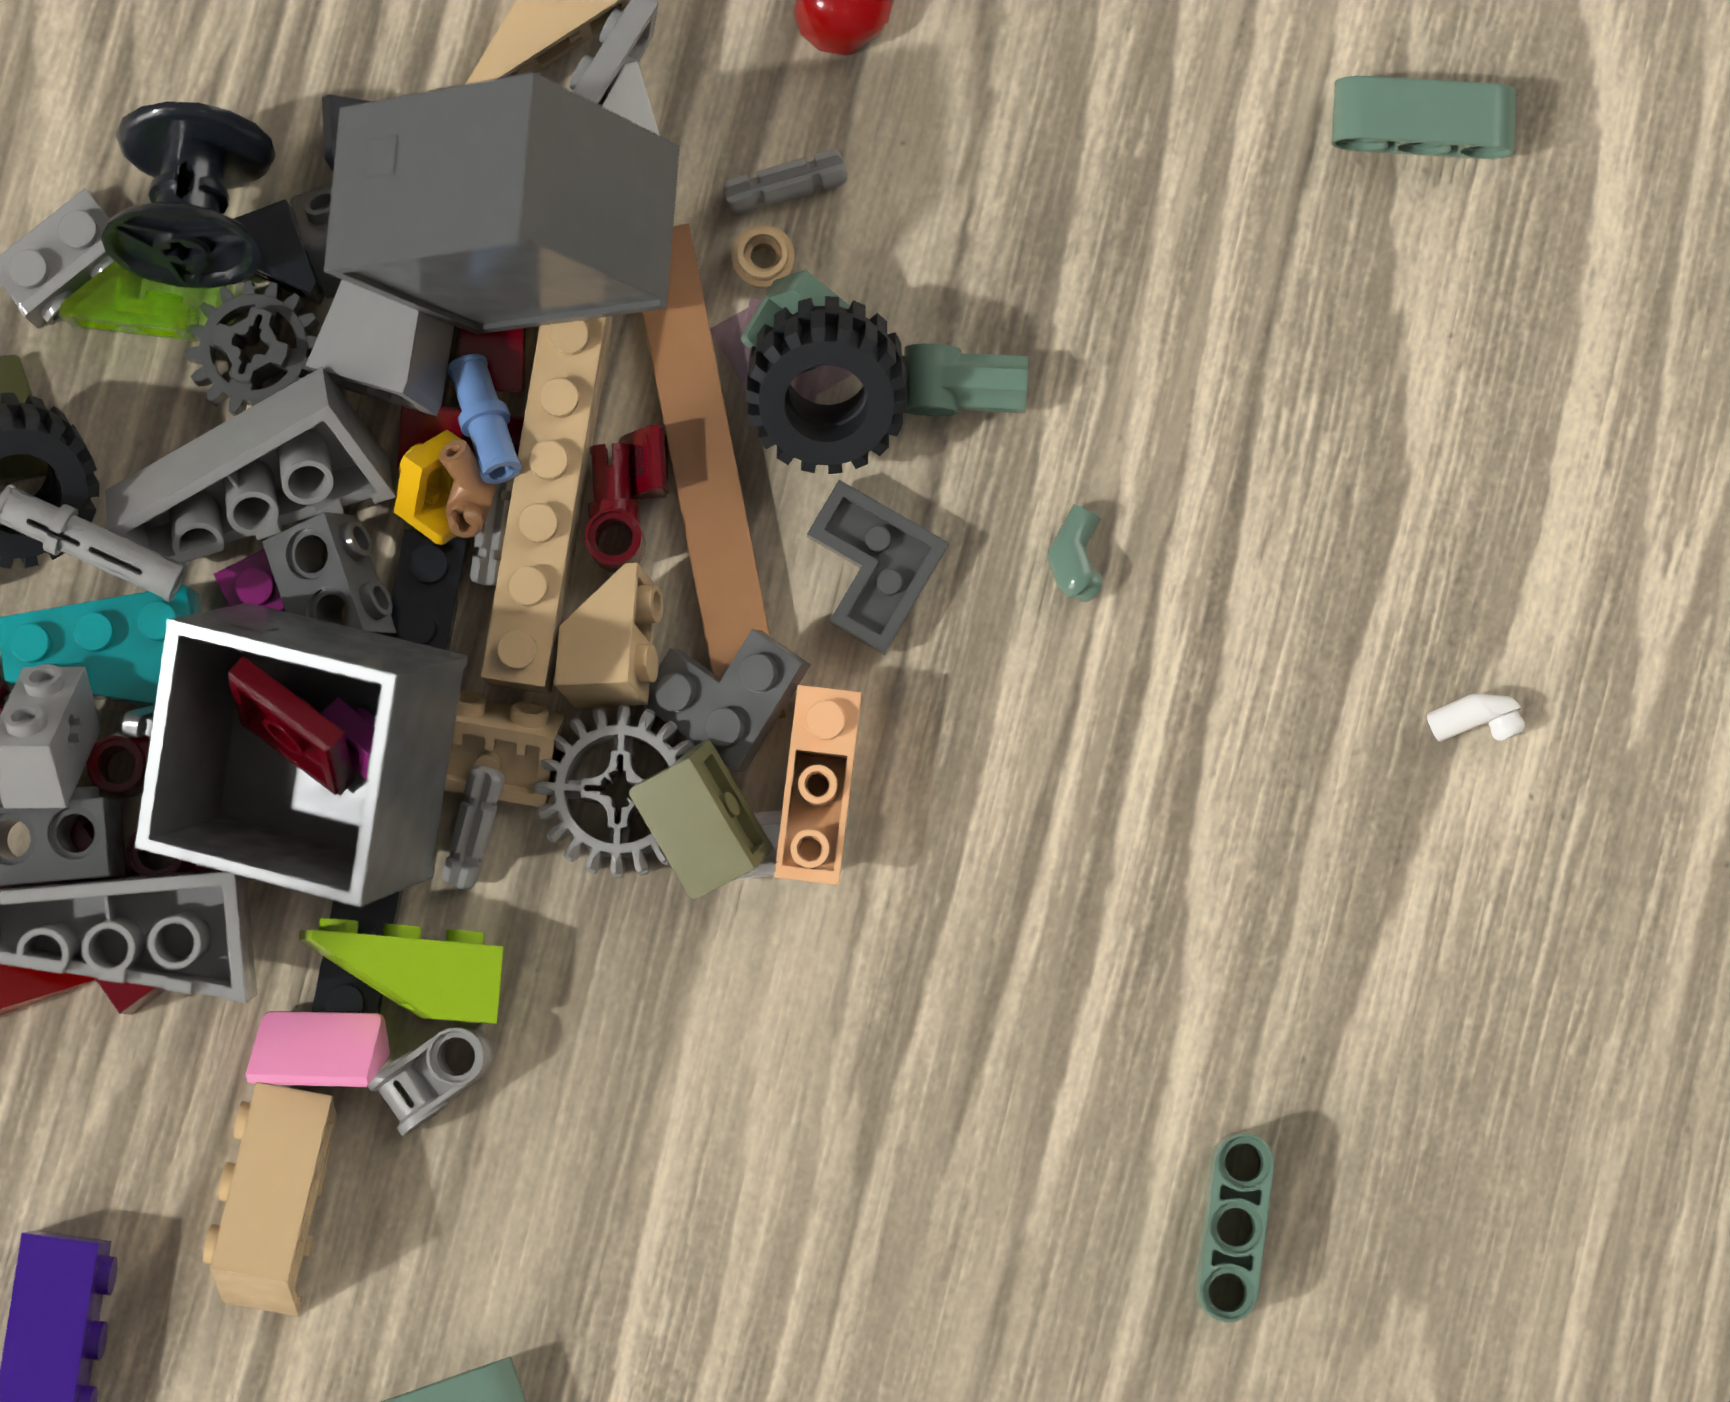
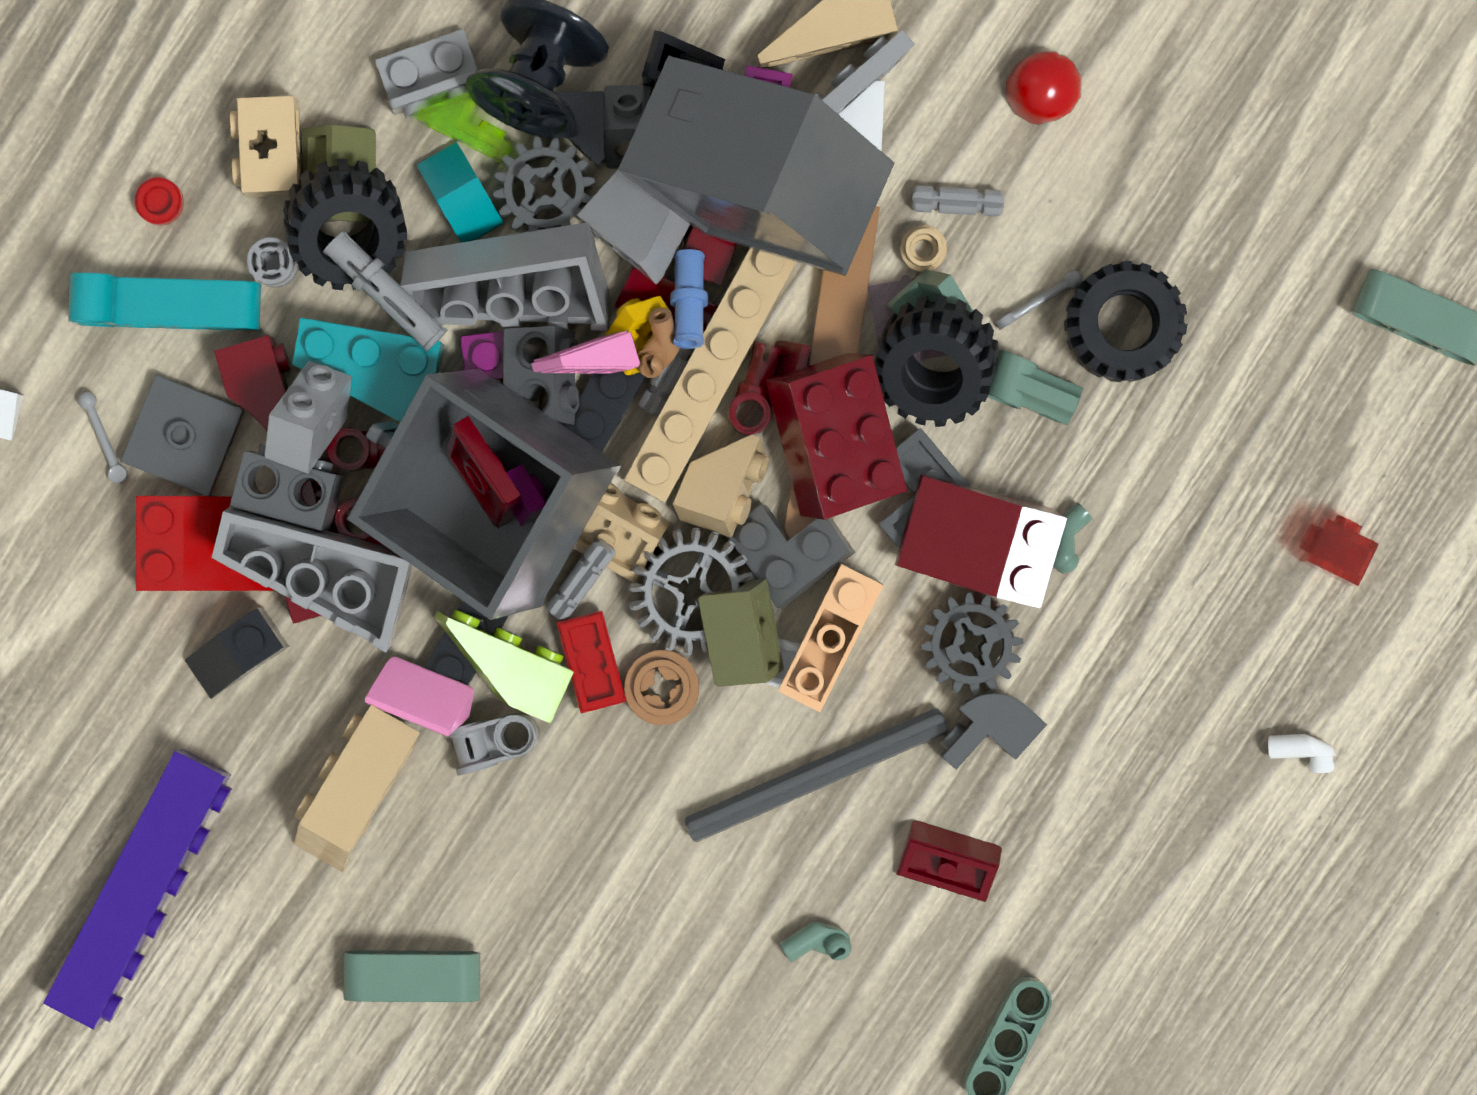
camera: 10 degrees right, 5 degrees up
(62, 1077) = (236, 652): none -> black slope
(152, 395) = (460, 193): none -> teal slope
(390, 532) = (597, 356): none -> bright pink slope
(526, 927) = (593, 662): none -> red plate
(595, 926) = (652, 708): none -> medium nougat gear
(733, 524) = (836, 435): none -> dark red brick
(864, 971) = (816, 775): none -> dark grey axle
(943, 1180) = (820, 938): none -> sand green arm
(965, 230) = (1071, 280): none -> light grey hinge
(966, 593) = (981, 540): none -> dark red slope
(1022, 711) = (990, 634): none -> dark grey gear
(1060, 203) = (1158, 297): none -> black tyre
(1069, 812) = (992, 715): none -> dark grey brick
(1076, 1021) = (949, 860): none -> dark red slope
(1426, 445) = (1338, 549): none -> clear red brick

